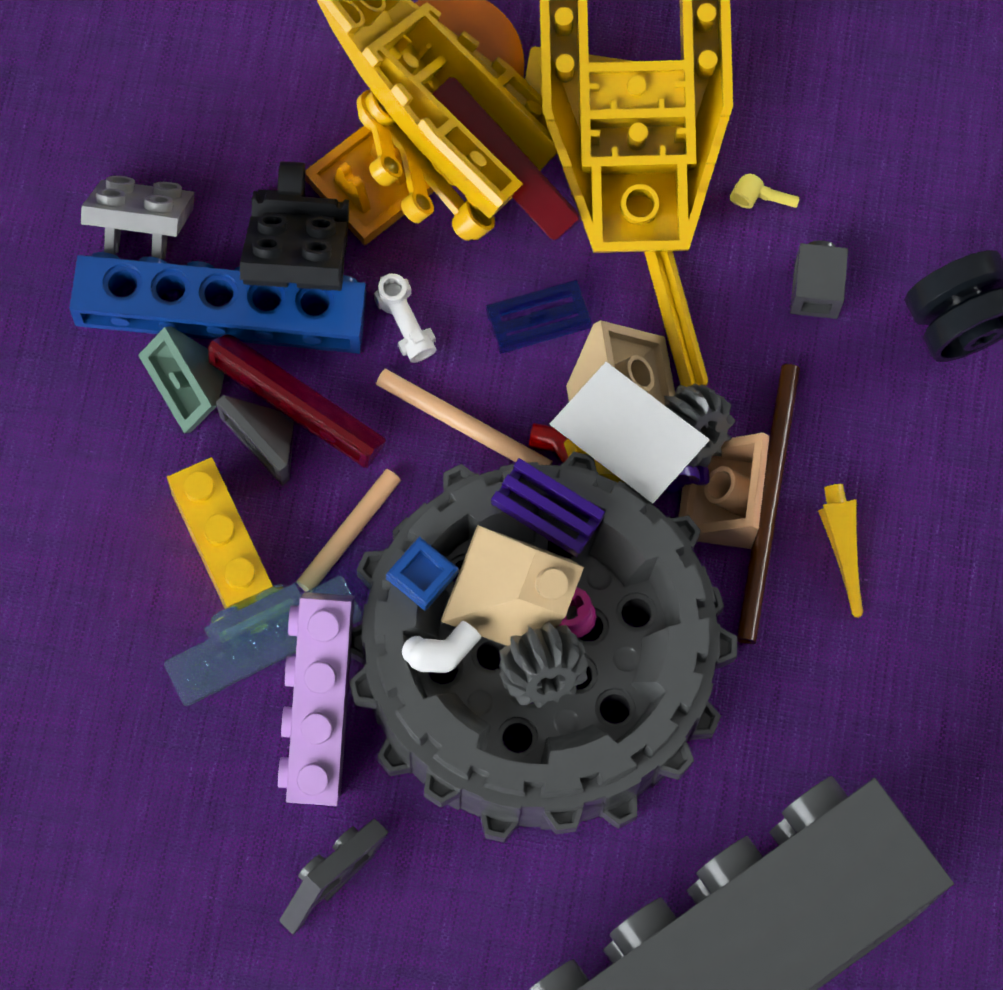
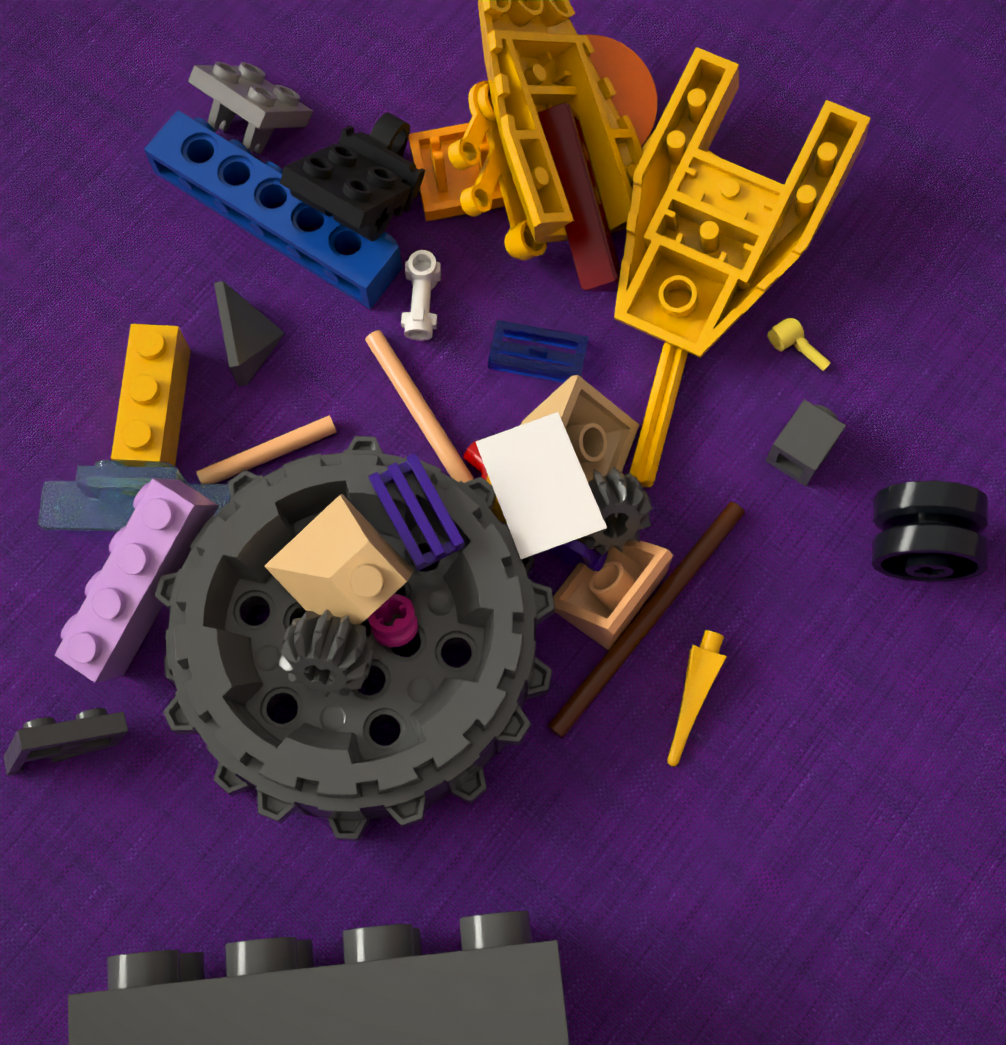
camera: 35 degrees right, 0 degrees up
(183, 376) = (212, 252): sand green slope -> none
(295, 399) = (289, 317): dark red slope -> none
(422, 573) = (268, 512): blue tile -> none
(440, 655) = (236, 593): white arm -> none

